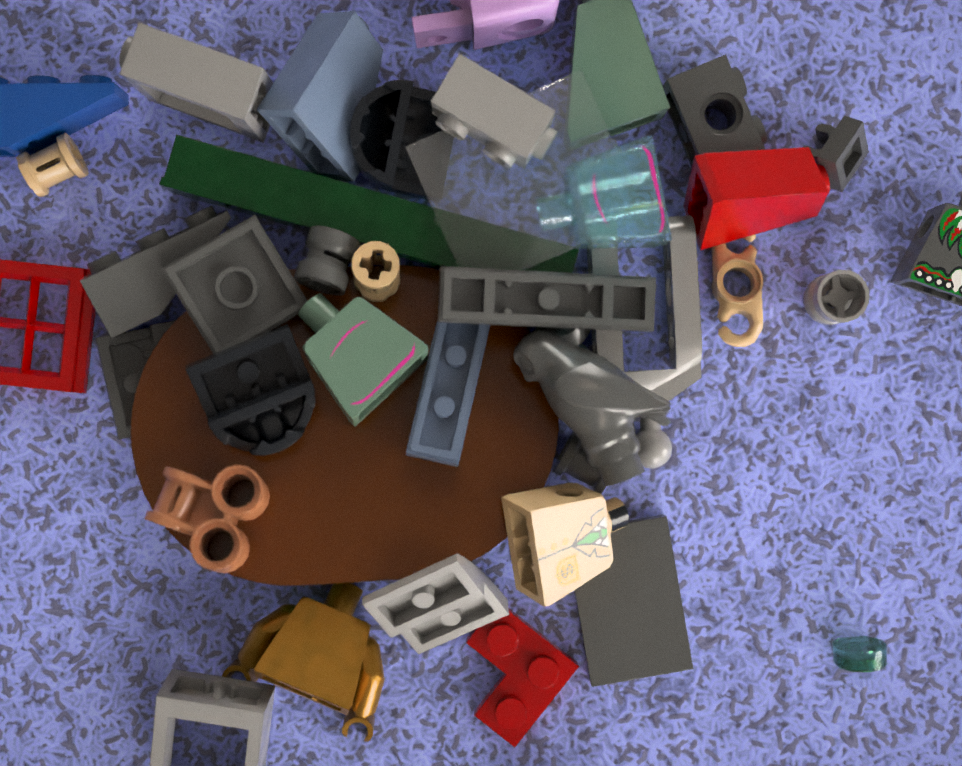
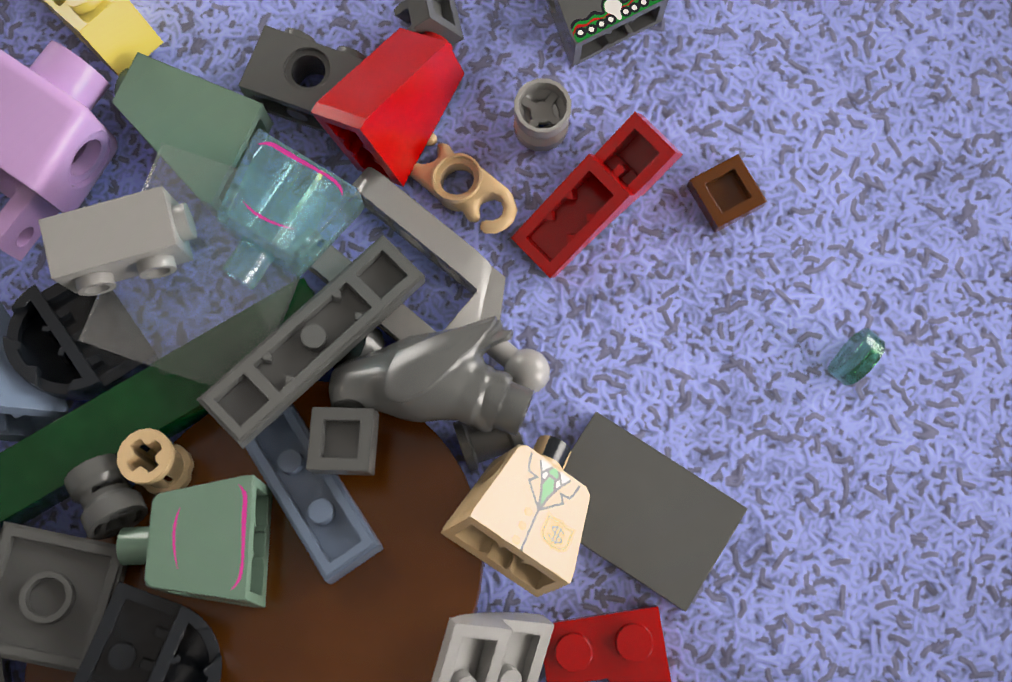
camera: 50 degrees left, 10 degrees down
(500, 380) = (343, 441): none -> dark grey tile
(814, 385) = (596, 194): none -> red slope
(895, 468) = (726, 193): none -> reddish brown tile

